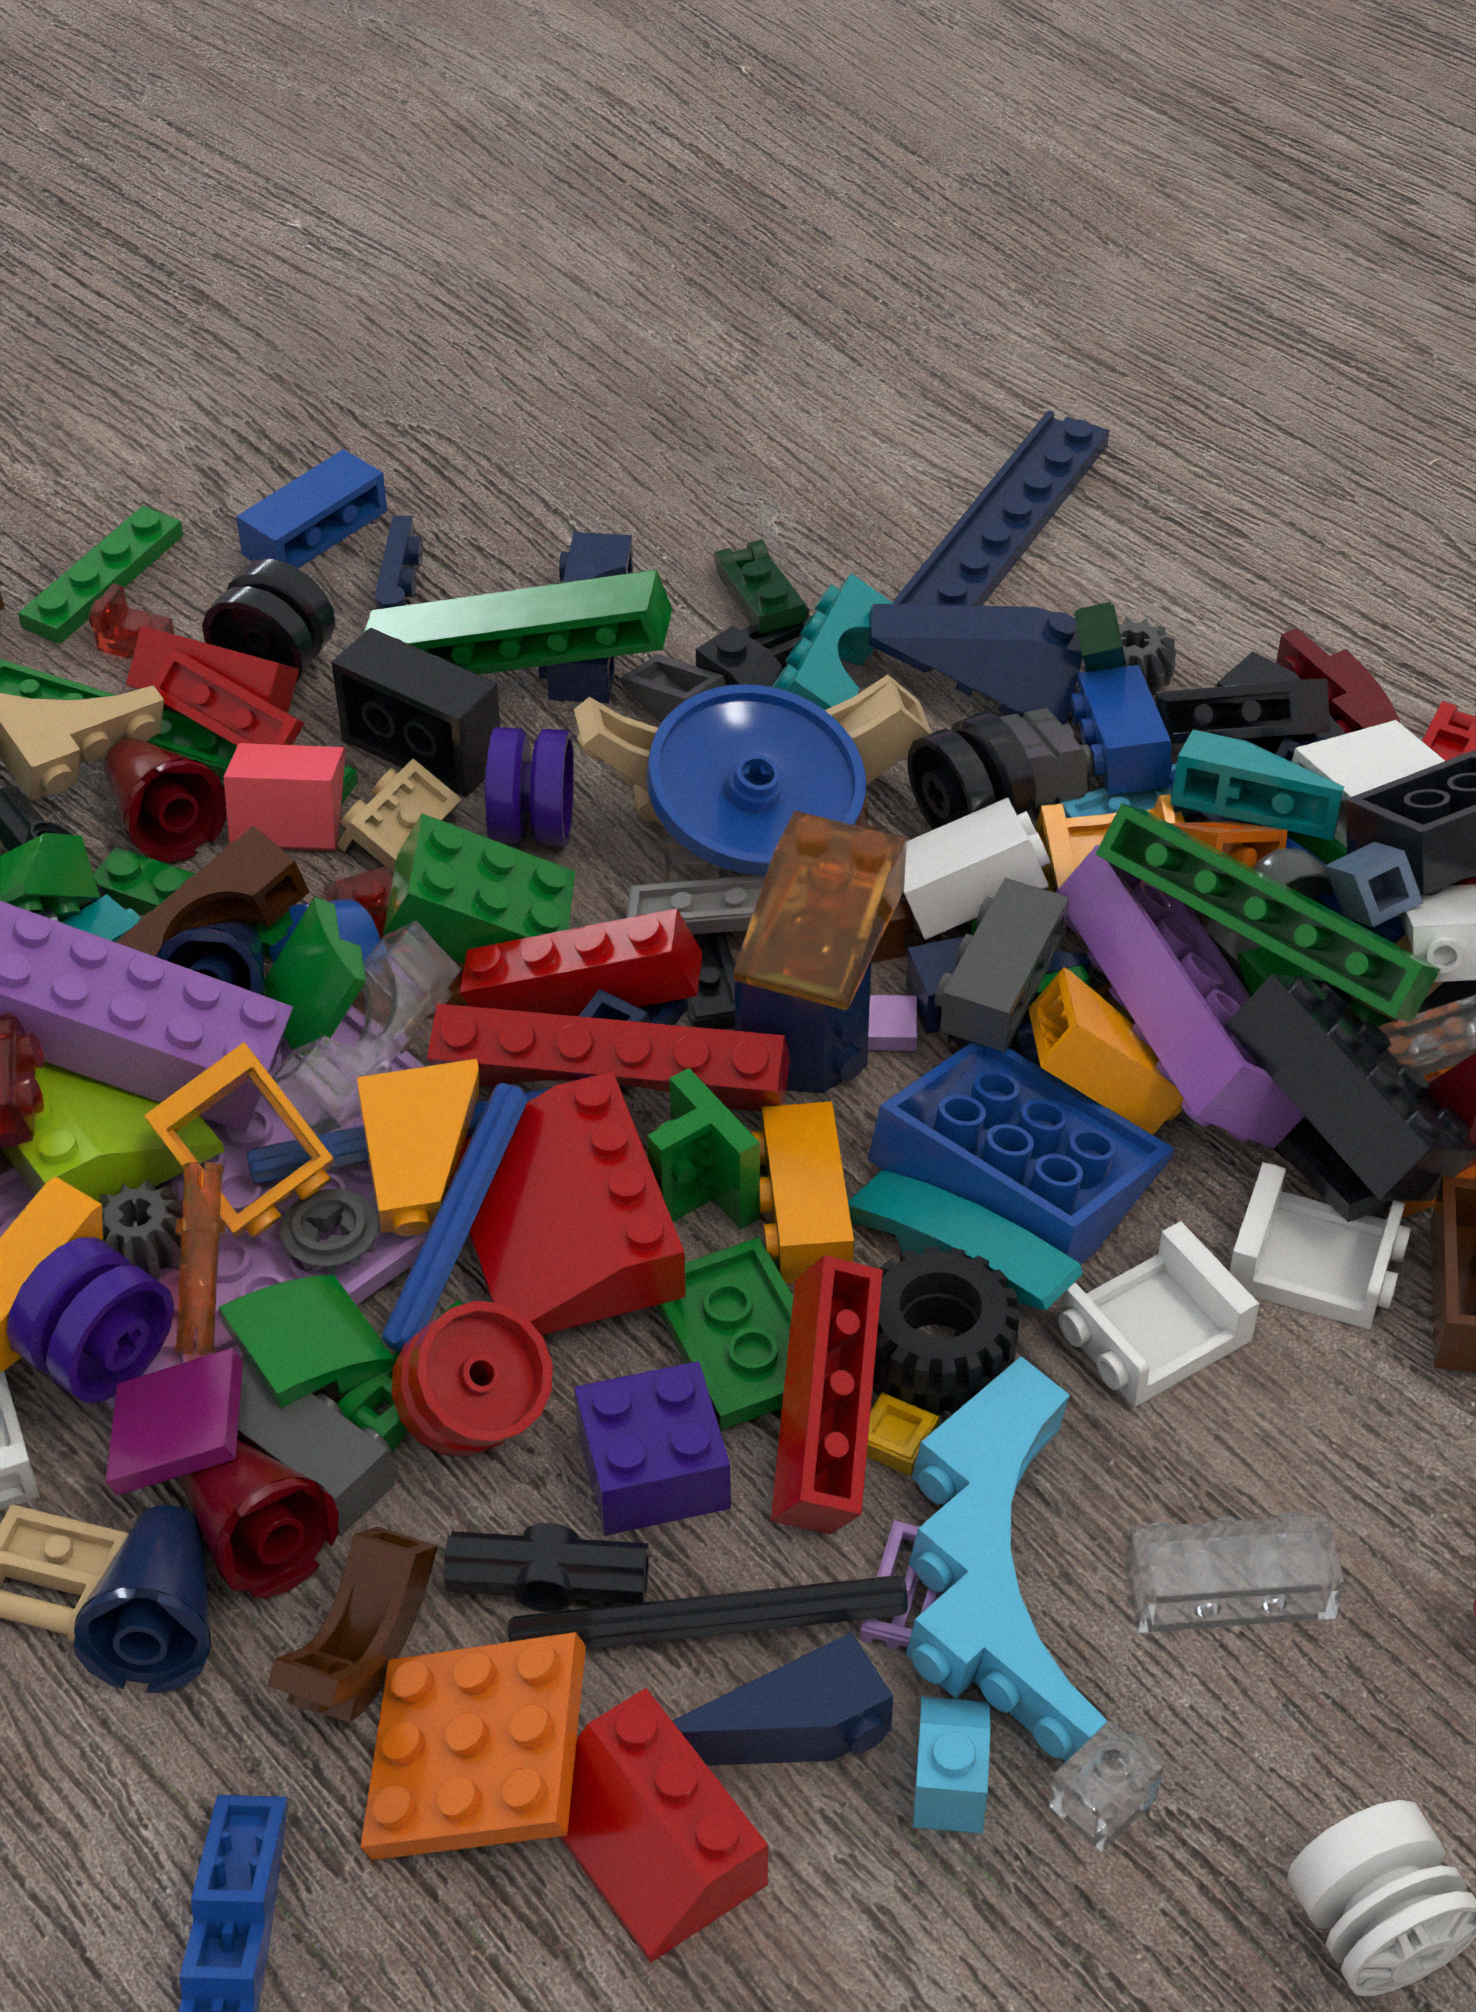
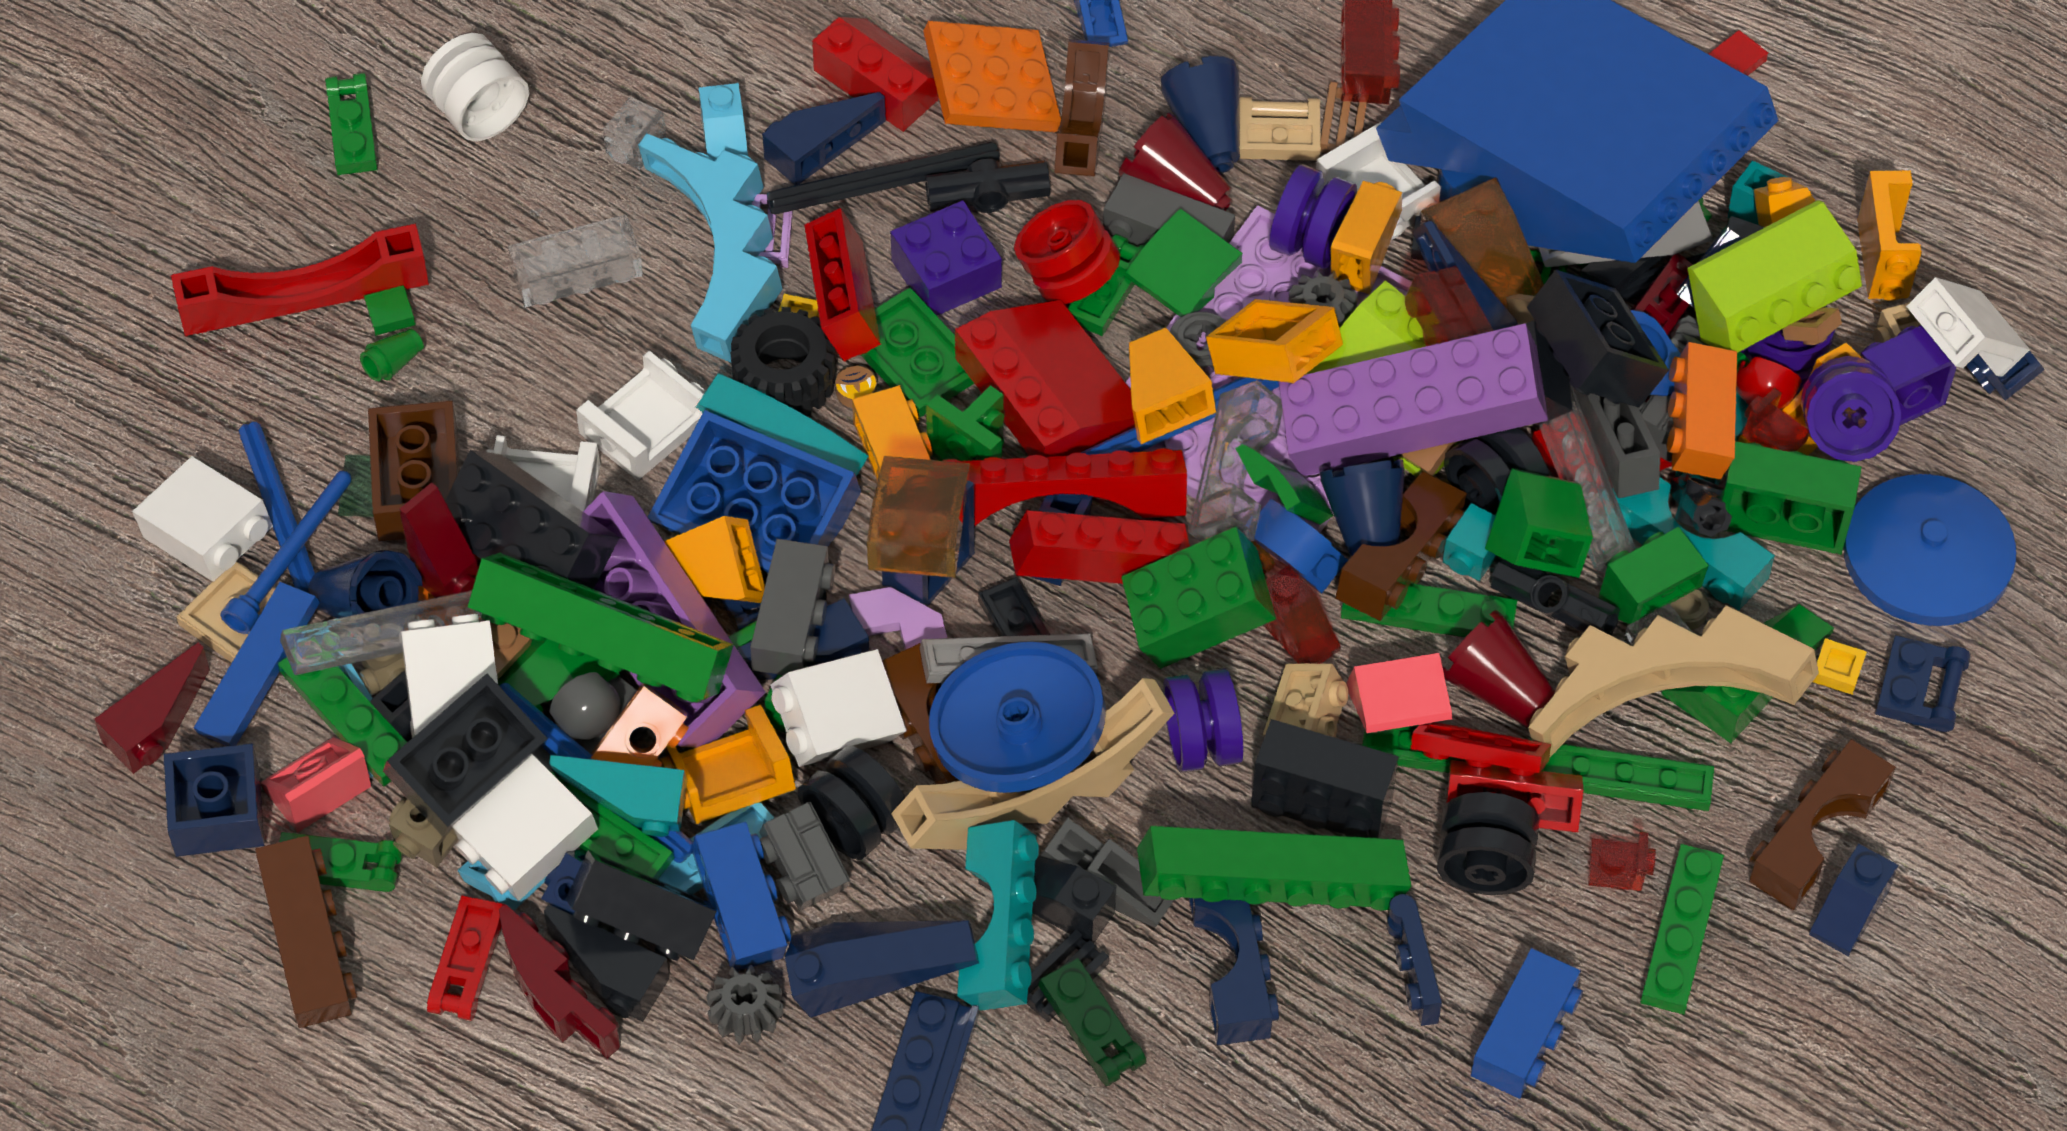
camera: 165 degrees right, 10 degrees up
(175, 1421) = (1235, 187): magenta tile -> none
(200, 1236) = (1269, 275): clear orange pin -> none
(455, 1216) = (1117, 348): blue axle -> none
(1100, 637) = (769, 952): dark green slope -> none
(1374, 884) = (524, 678): sand blue brick -> none

